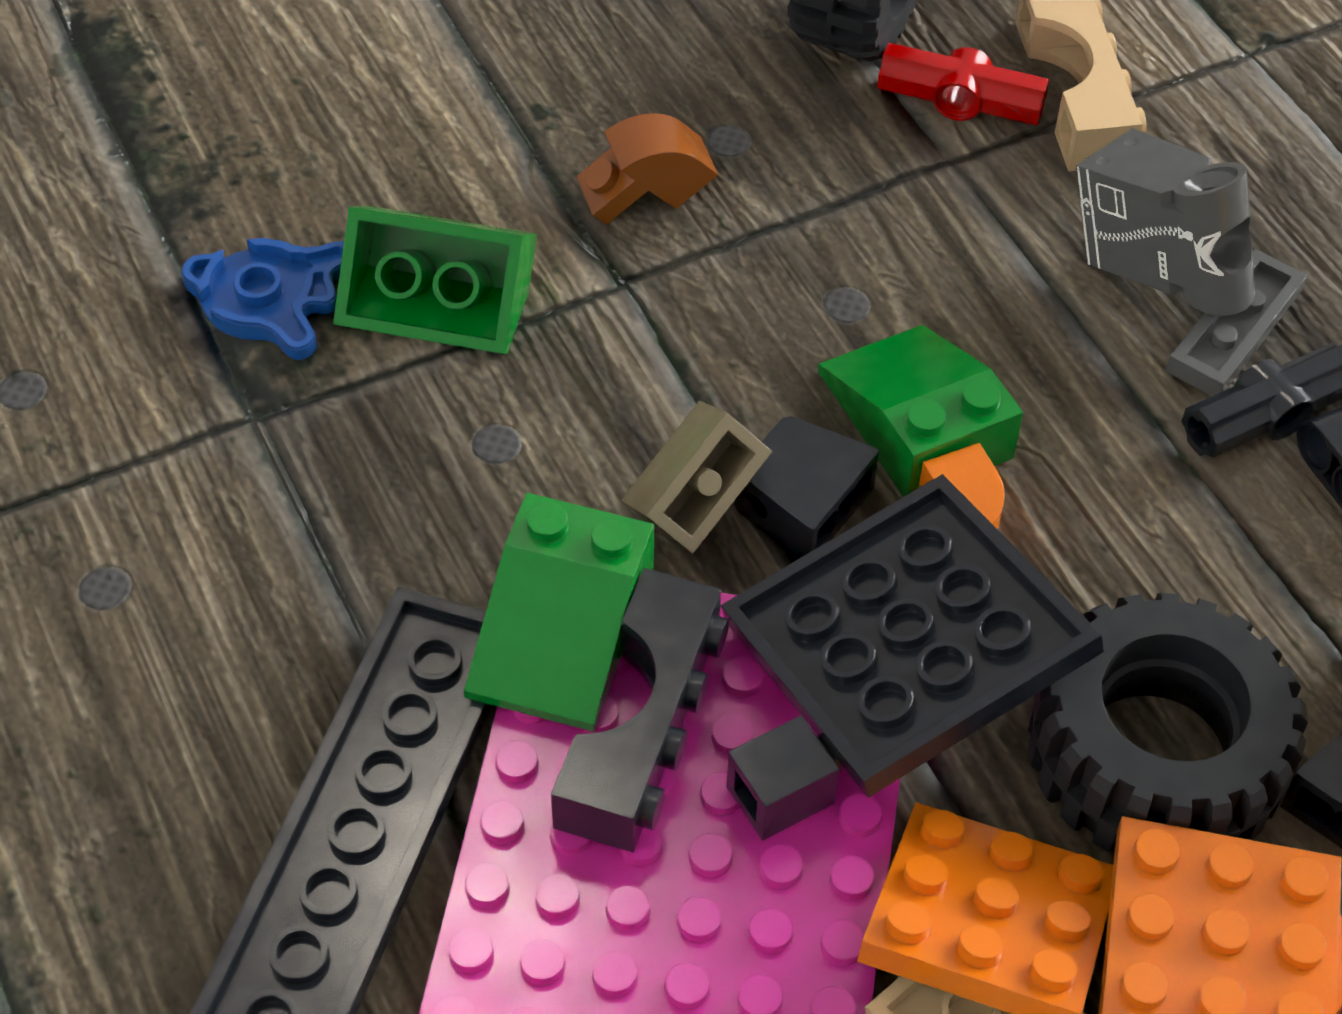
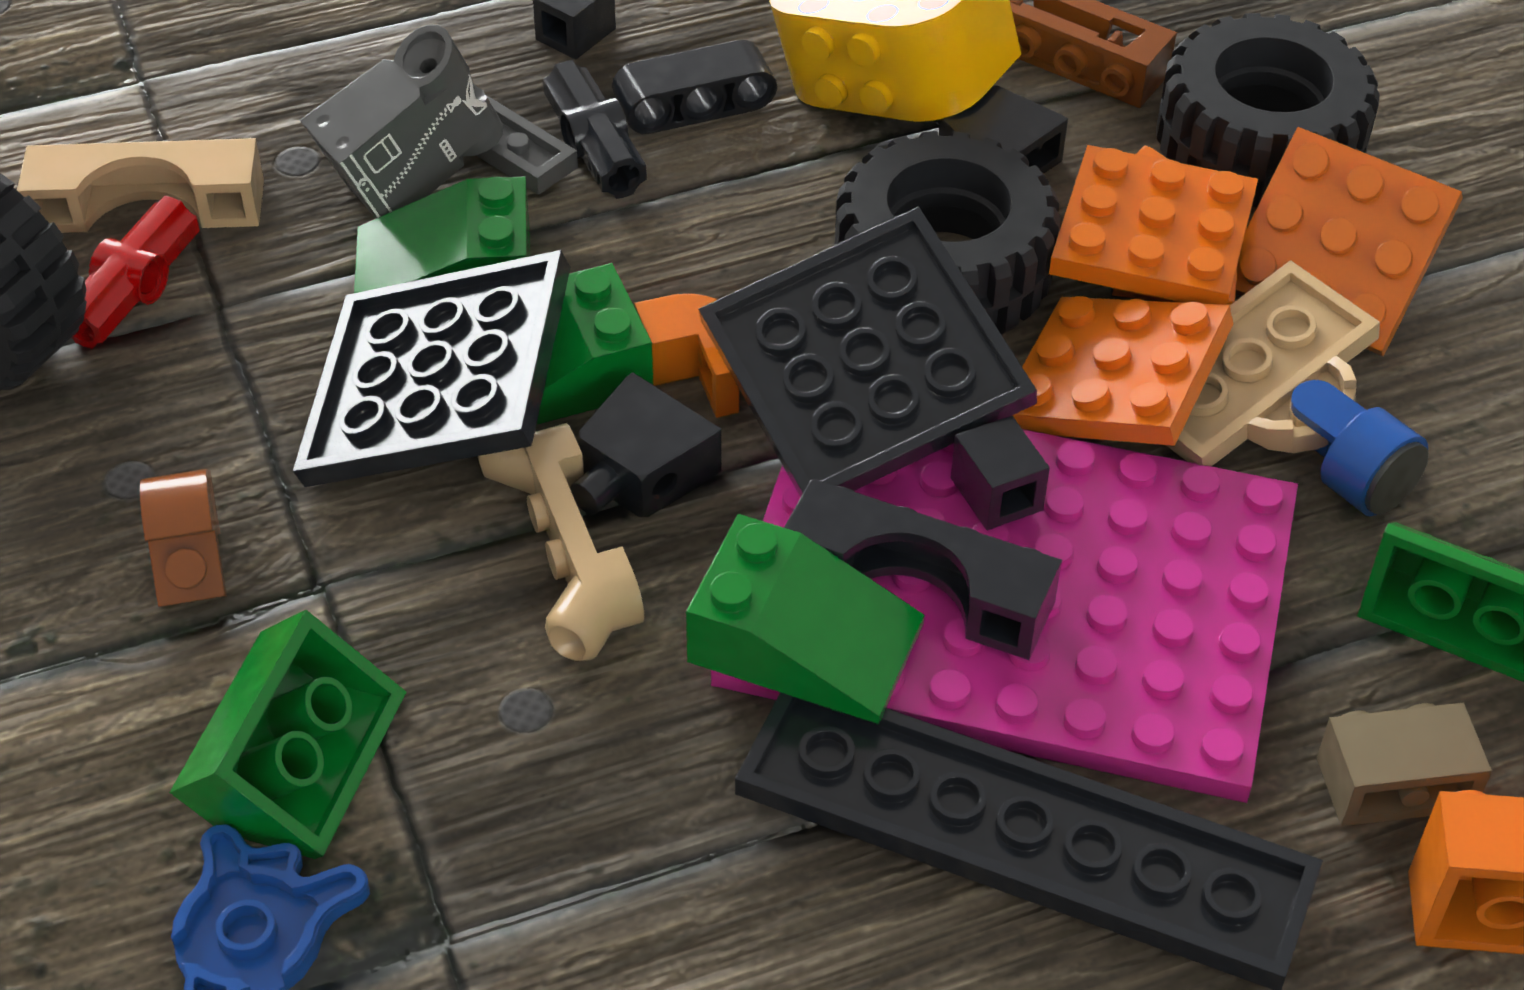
camera: 85 degrees left, 5 degrees down
(611, 463) = (602, 585): none -> tan plate
(696, 475) = (648, 504): dark tan brick -> none
(857, 302) = (435, 370): none -> black plate
(1051, 312) = (445, 233): none -> green slope

